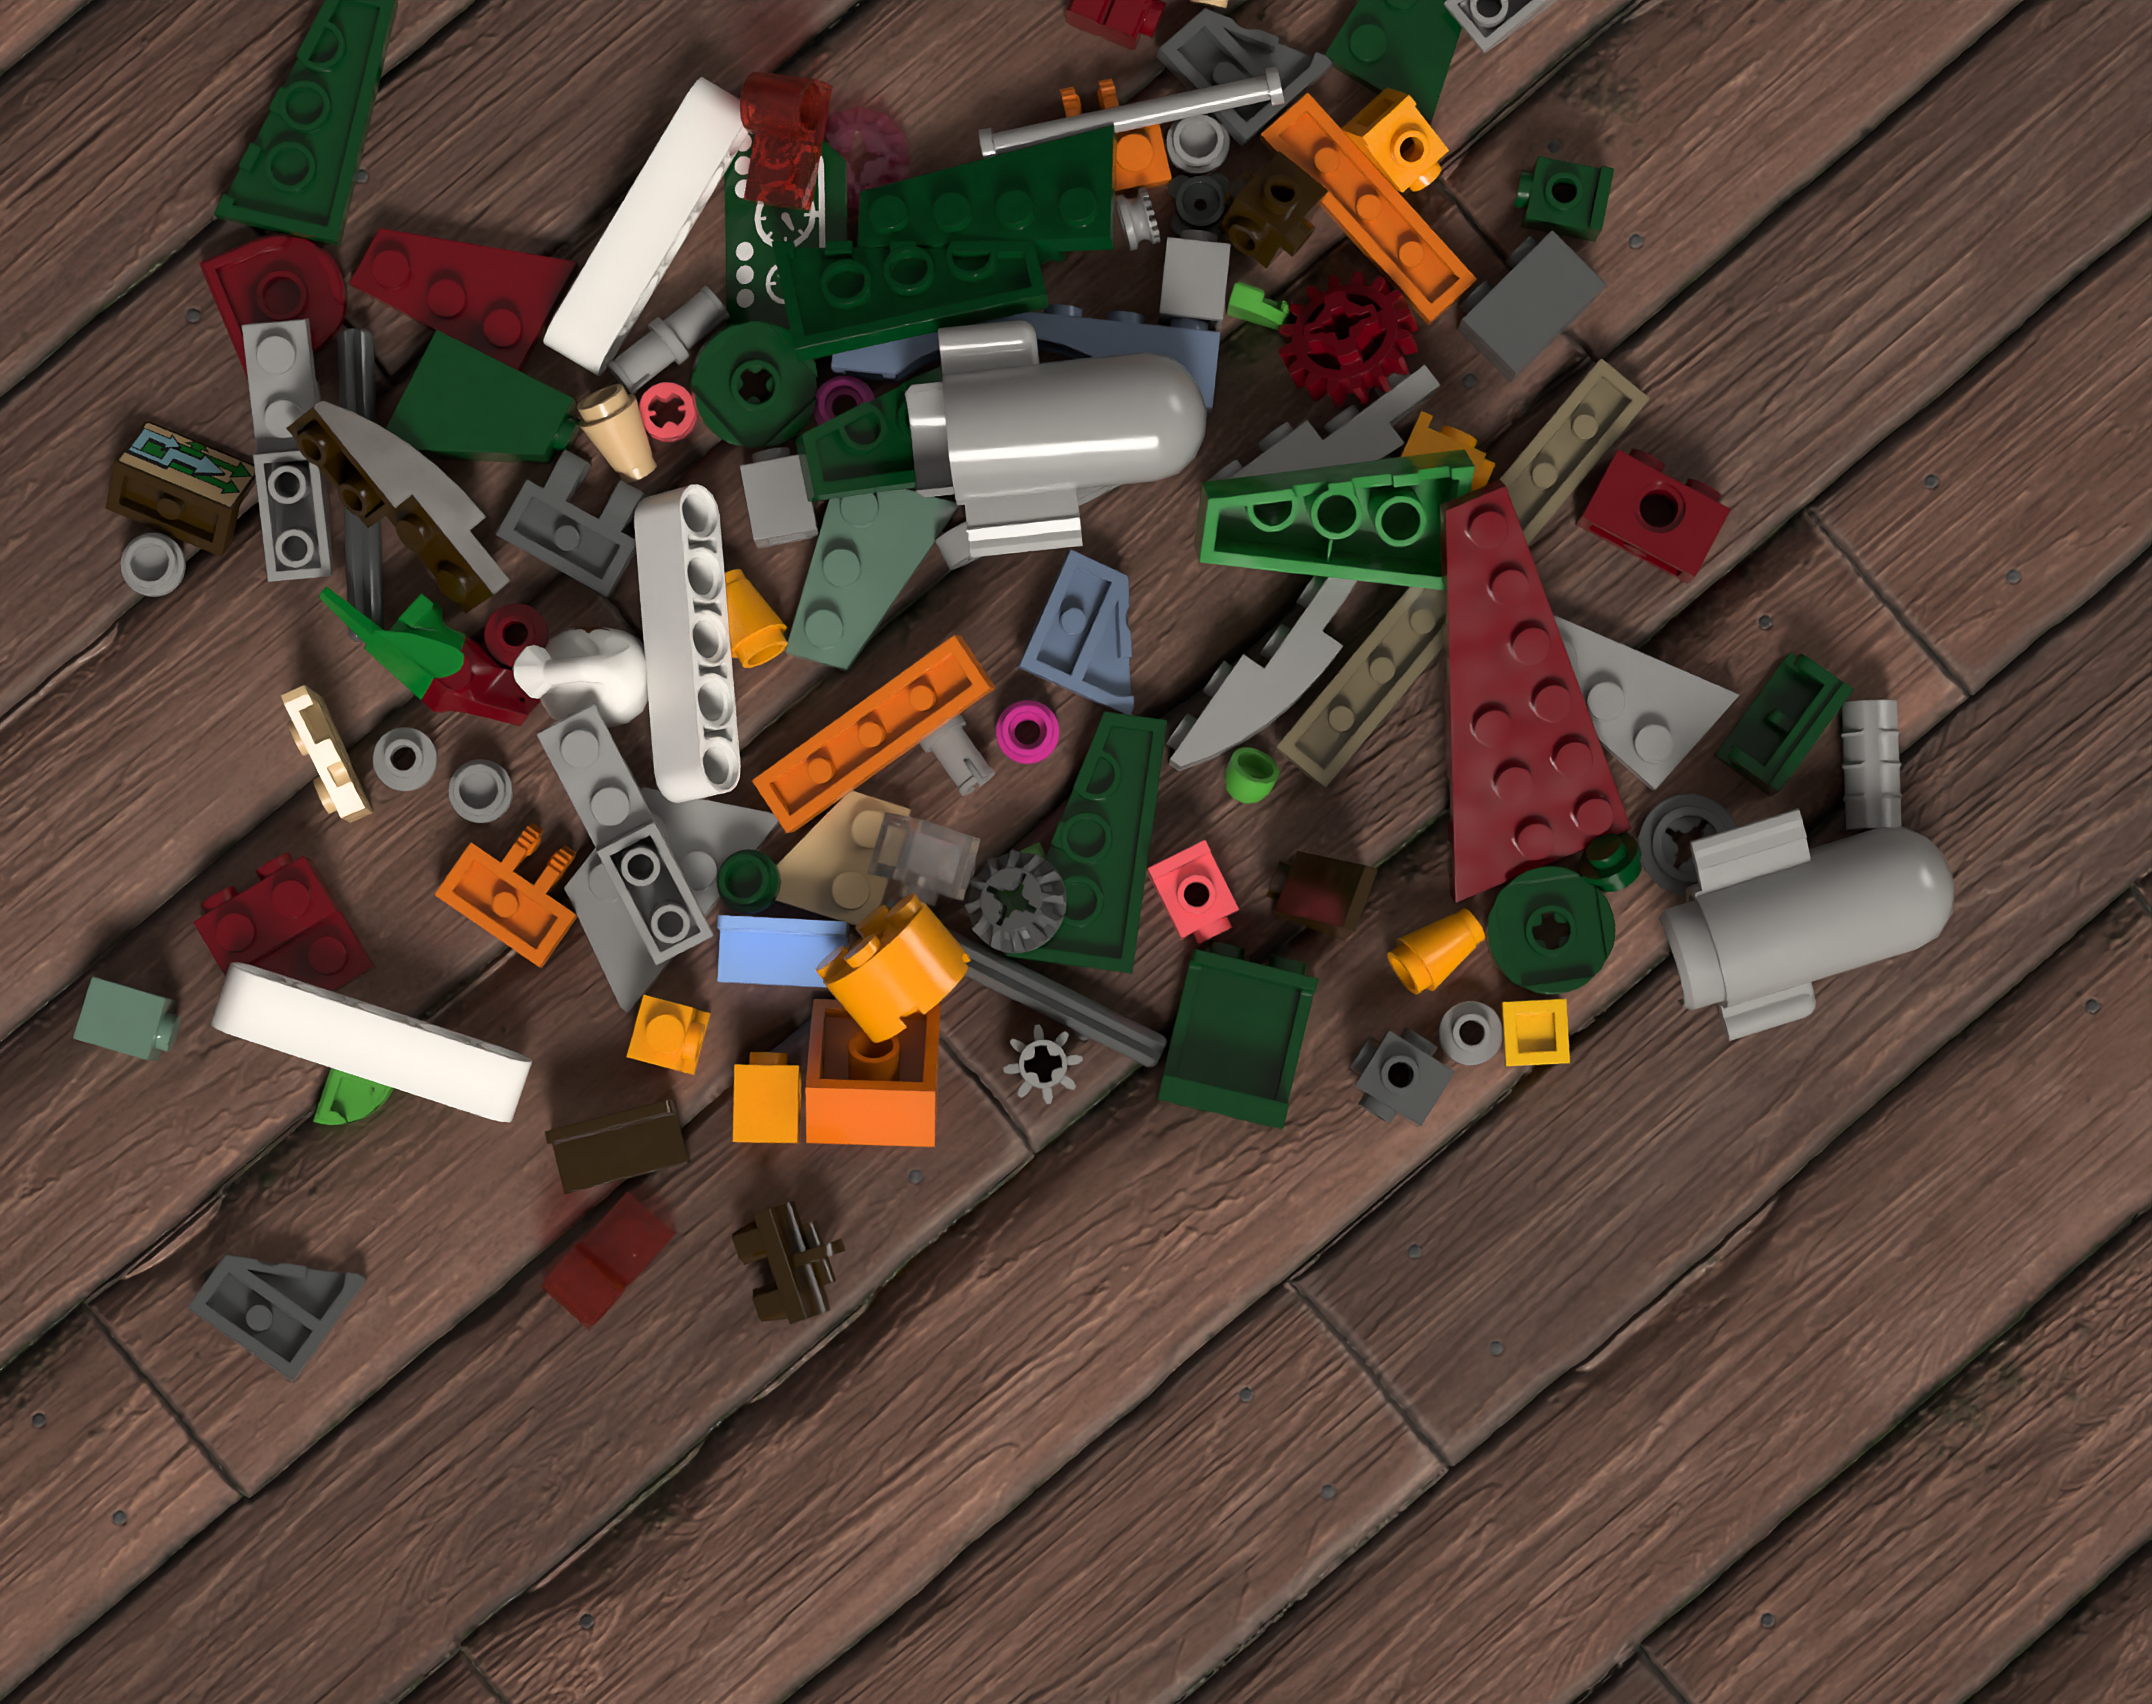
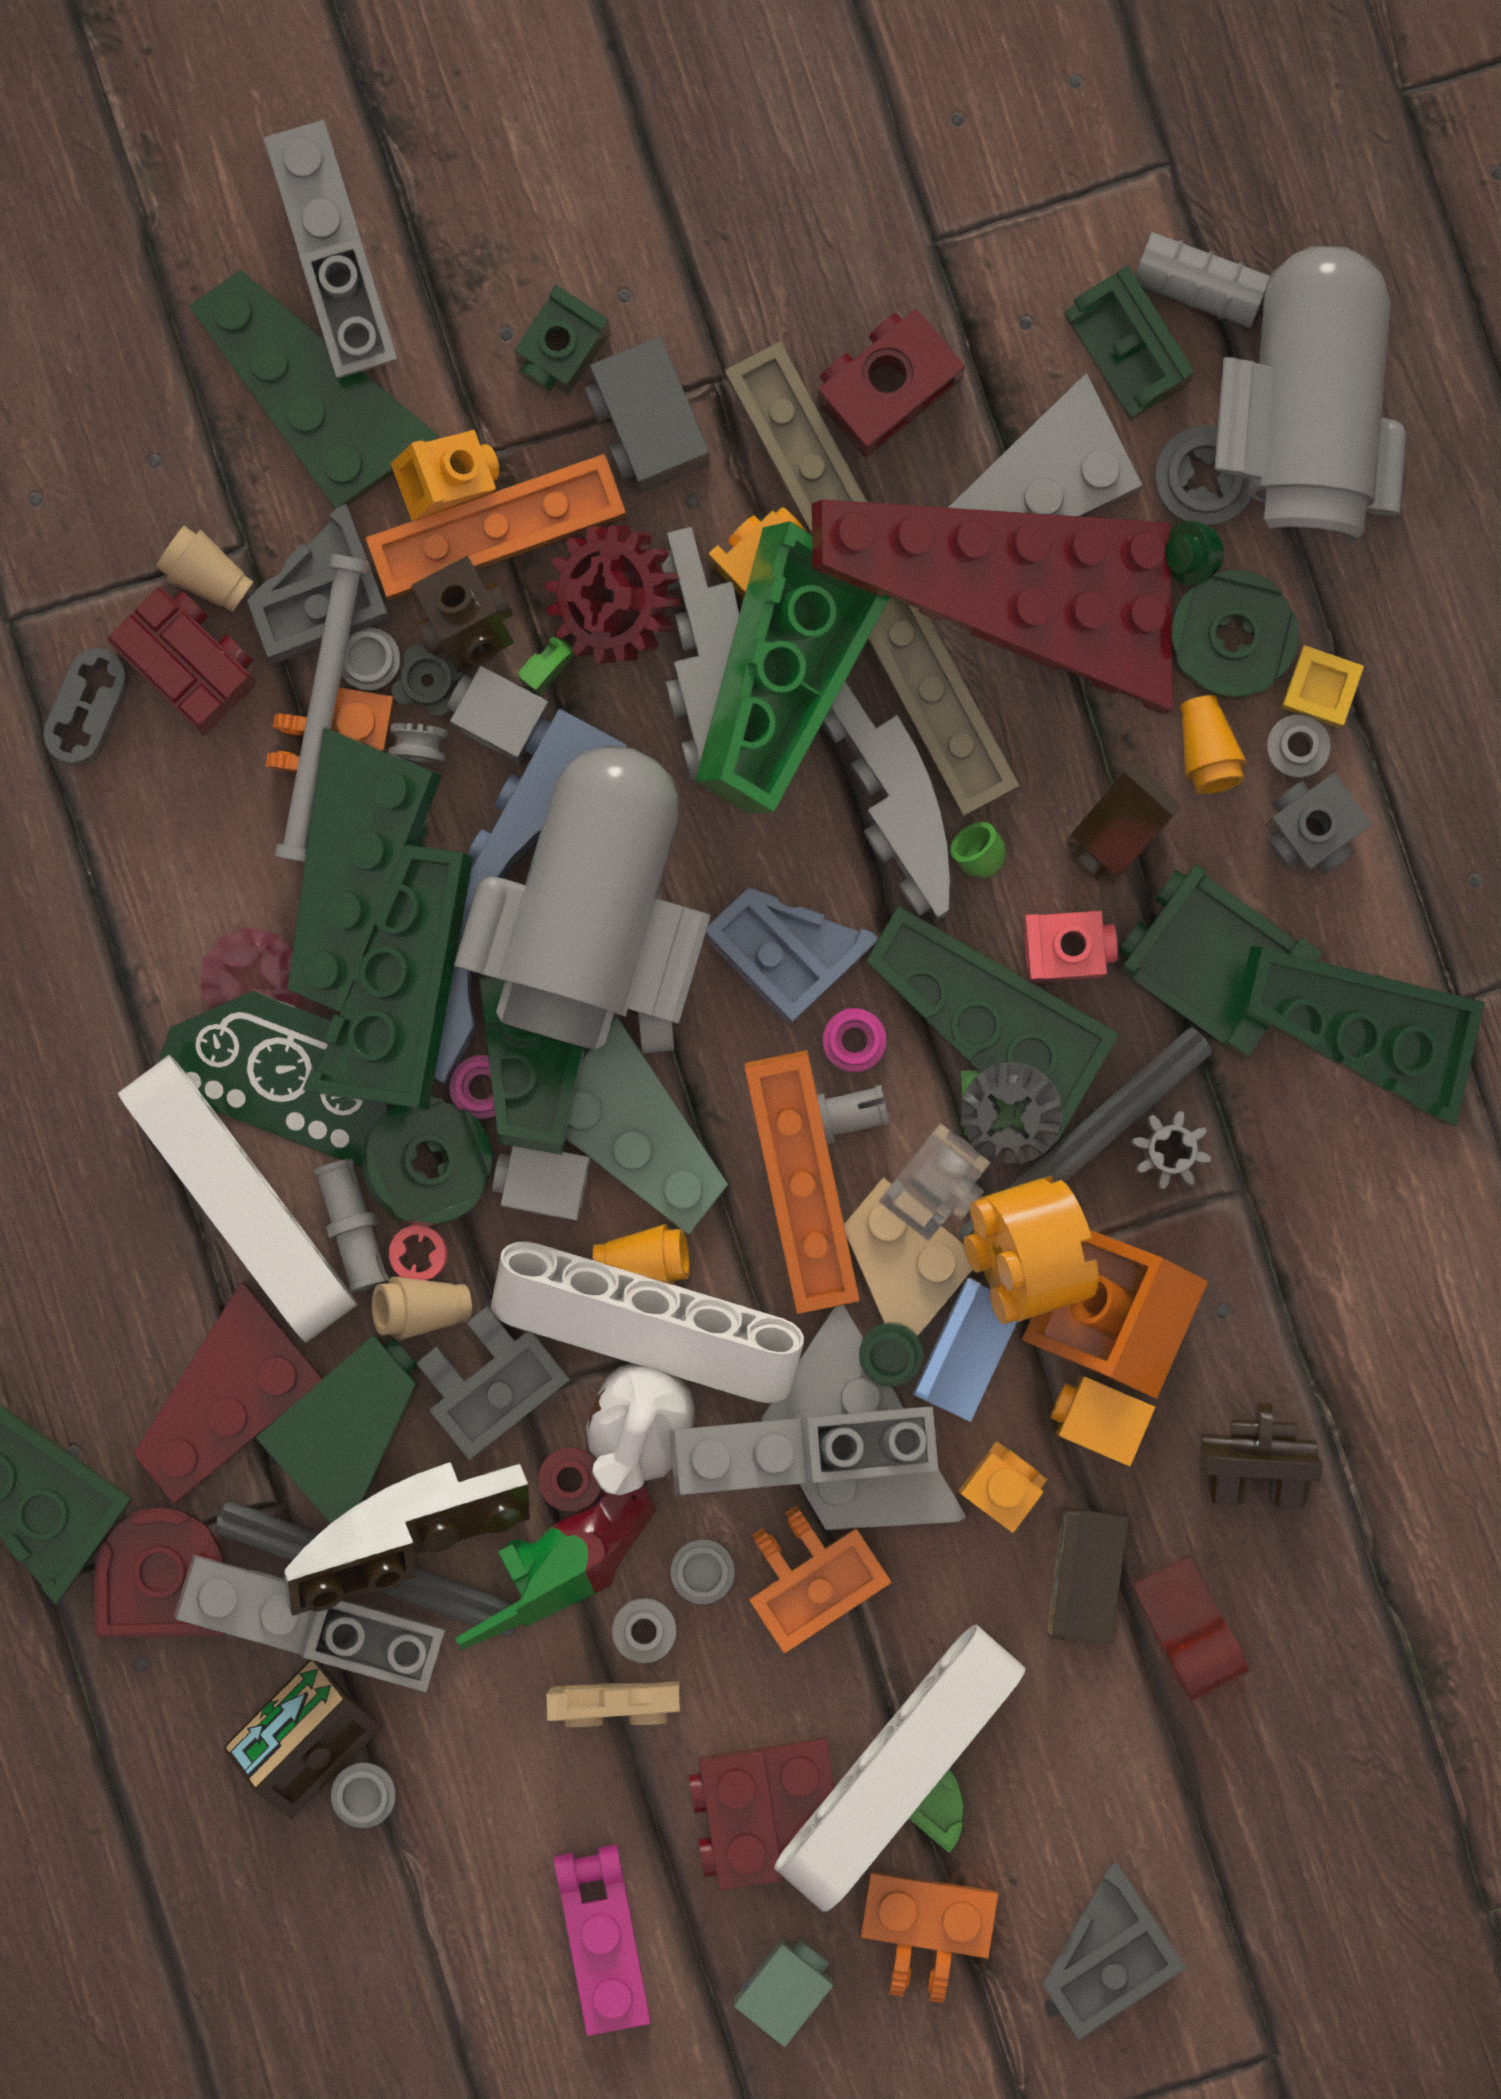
camera: 65 degrees left, 0 degrees up
(106, 837) = (602, 1942): none -> dark pink plate
(247, 1128) = (929, 1917): none -> orange hinge
(789, 132) = (204, 1033): clear red plate -> none
(1234, 1210) = (1379, 1028): none -> dark green wing

